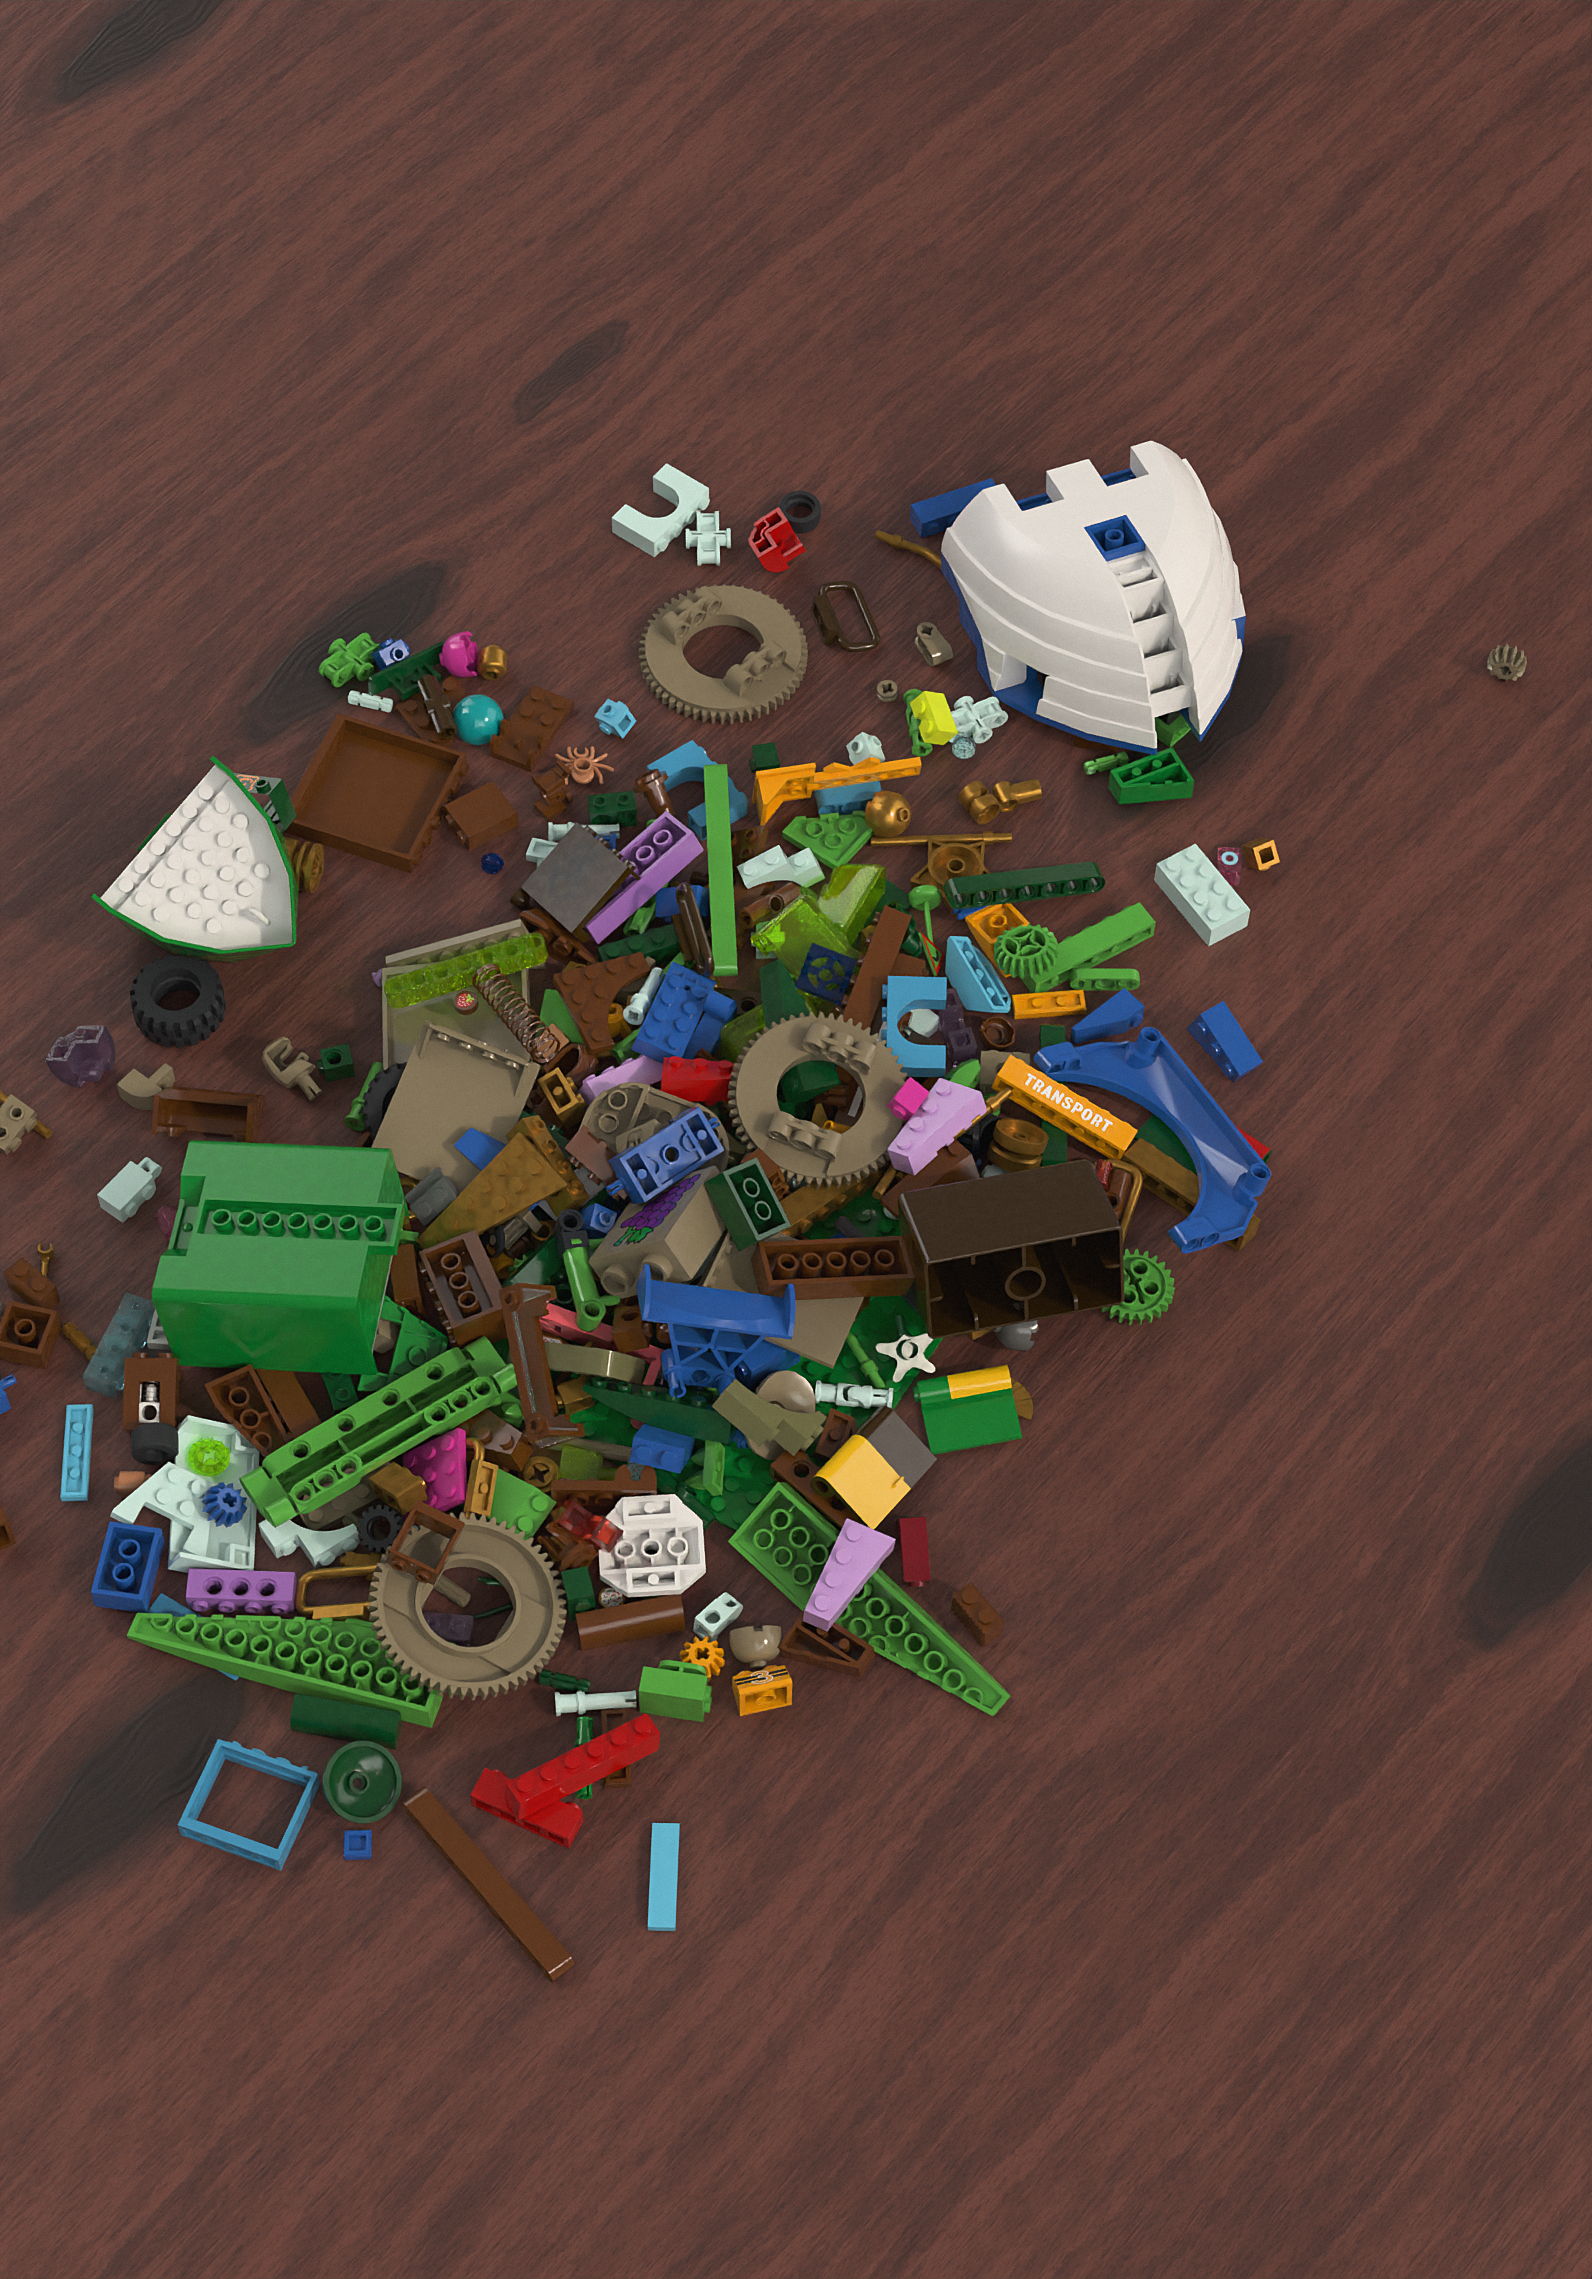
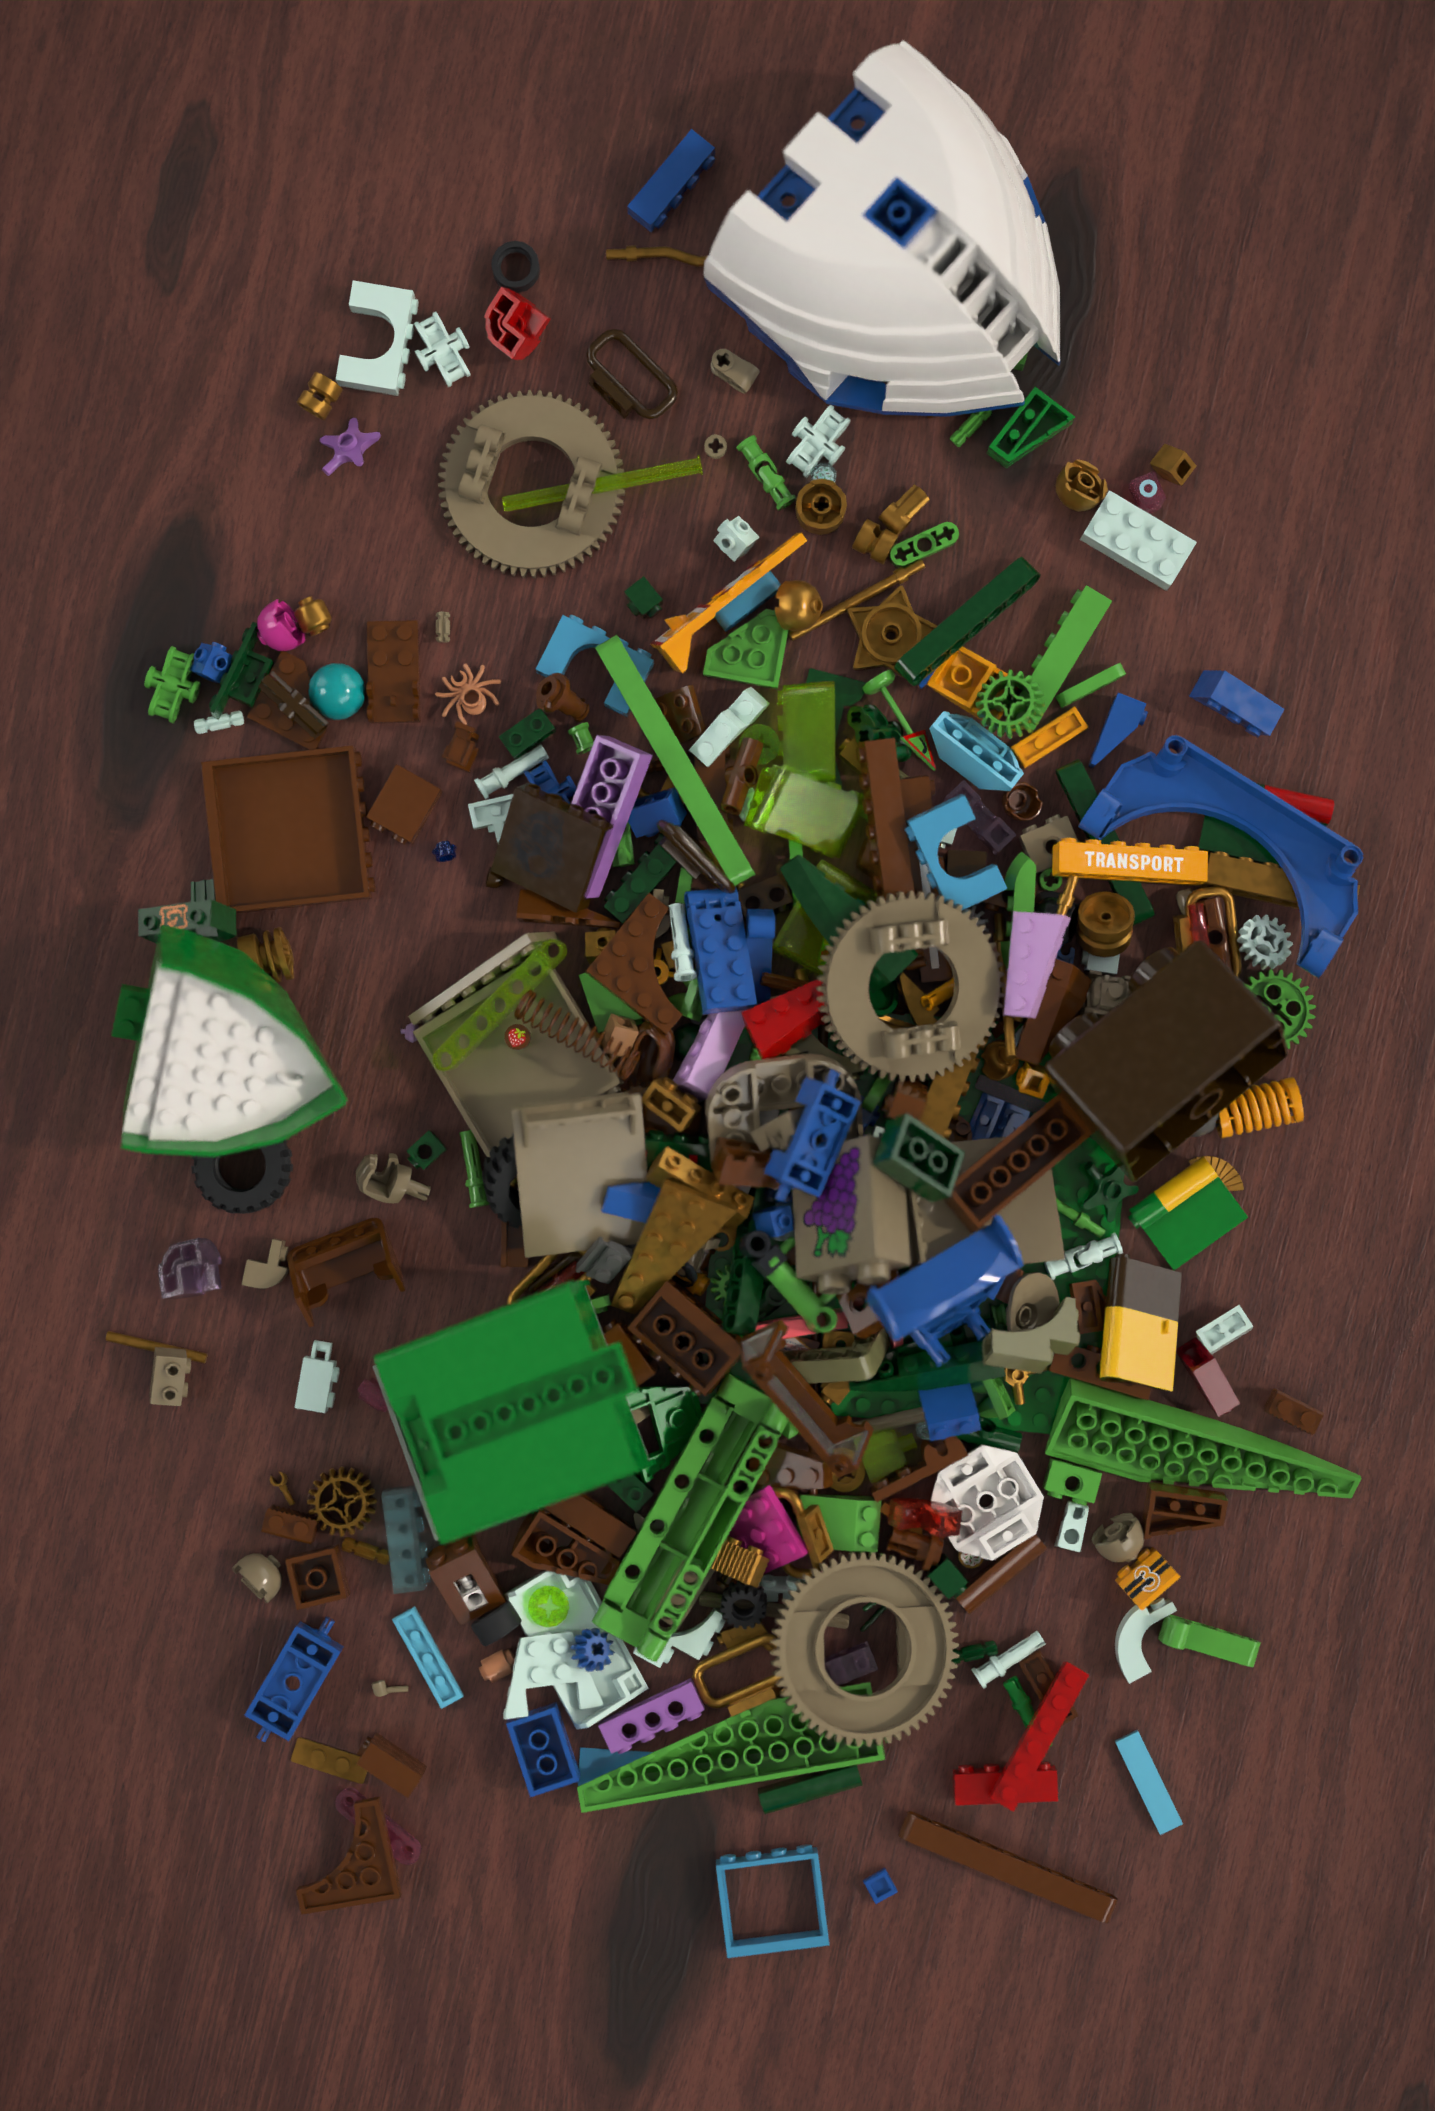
camera: 25 degrees left, 30 degrees up
(18, 1457) = (380, 1689): none -> dark tan hand
(93, 1297) = (337, 1491): none -> pearl gold gear
(377, 1776) = (867, 1843): dark green dish -> none
(435, 1521) = (806, 1598): reddish brown window -> none
(588, 717) = (442, 627): none -> dark tan piece
(593, 567) = (348, 446): none -> medium lavender animal
(595, 524) = (325, 389): none -> pearl gold wheel
(611, 715) = (471, 624): medium azure brick -> none
(675, 1691) = (1077, 1622): bright green brick -> none
(702, 1650) = (1074, 1566): light orange gear -> none
(721, 1732) = (1130, 1636): none -> light aqua arch
(734, 1564) = (1059, 1471): none -> bright green brick
(739, 1461) = (1016, 1379): none -> pearl gold piece
(785, 672) = (606, 483): none -> clear neon green axle
(787, 1771) = (1208, 1640): none -> bright green beam
(834, 996) = (820, 835): clear blue piece -> none
(848, 1568) = (1176, 1450): lavender wedge -> none
(867, 1210) = (995, 1062): none -> pearl gold hair
(885, 1227) = (1028, 1080): none -> light orange brick
(907, 1099) = (996, 953): dark pink brick -> none
(935, 716) = (785, 467): neon yellow brick -> none
(948, 760) = (818, 492): none -> pearl gold brick
(950, 1518) = (1224, 1329): none -> light aqua hinge
(1027, 833) = (938, 530): none -> bright green beam
(1075, 1354) = (1267, 1114): none -> light orange piece
(1151, 1228) = (1265, 942): none -> light aqua gear
(1171, 833) = (1080, 486): none -> pearl gold cylinder
(1507, 662) = (1310, 101): dark tan gear -> none

